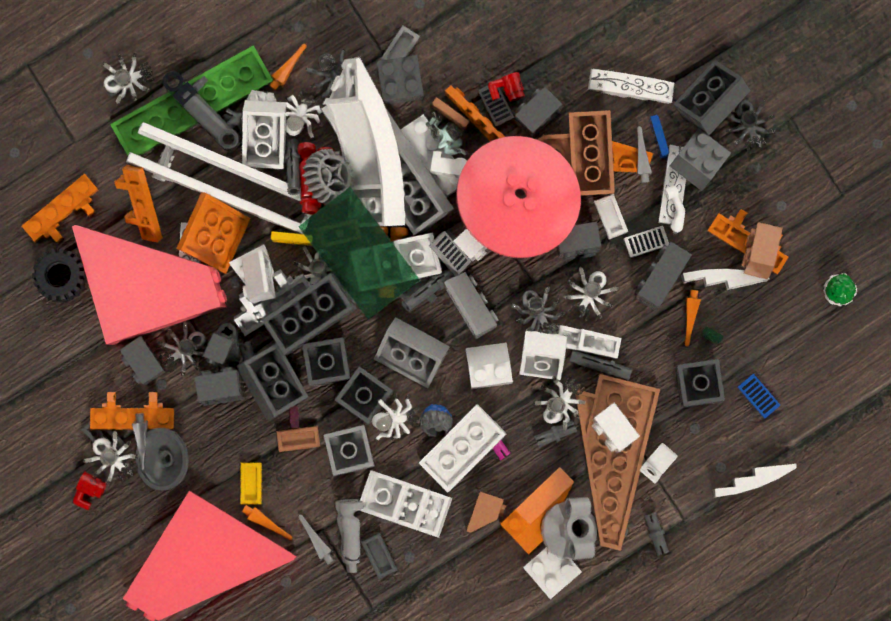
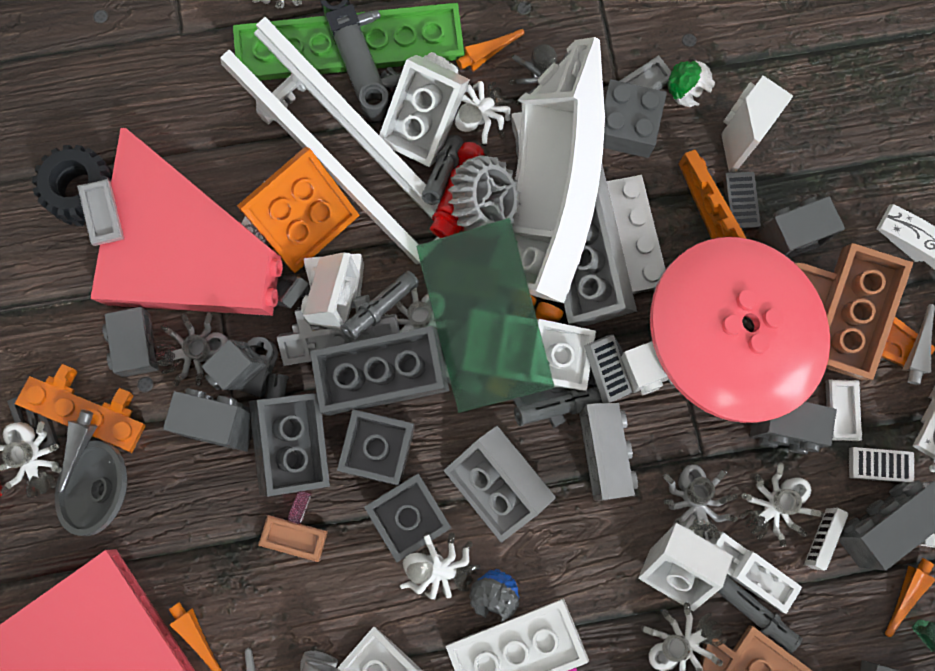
camera: 15 degrees right, 5 degrees down
(48, 218) = (102, 110): orange hinge -> none
(89, 287) = (100, 212): none -> light grey tile
(143, 208) = (223, 119): orange hinge -> none
(230, 286) = (290, 289): none -> dark grey tile
(251, 483) = (201, 574): yellow tile -> none
(287, 280) = (371, 312): none -> dark grey pin
(290, 238) = (398, 260): yellow tile -> none
(349, 450) = (354, 588): light grey brick -> none
(429, 38) = (689, 80): none -> piece
(446, 166) = (650, 251): white leg -> none
(449, 135) = (667, 212): animal -> none
(450, 114) = (678, 188): nougat tile -> none
(479, 52) = (751, 120): none -> white slope
(489, 365) = (600, 547): white slope -> none
(512, 86) = (773, 184): red piece -> none
(626, 302) = (826, 539): none -> white tile

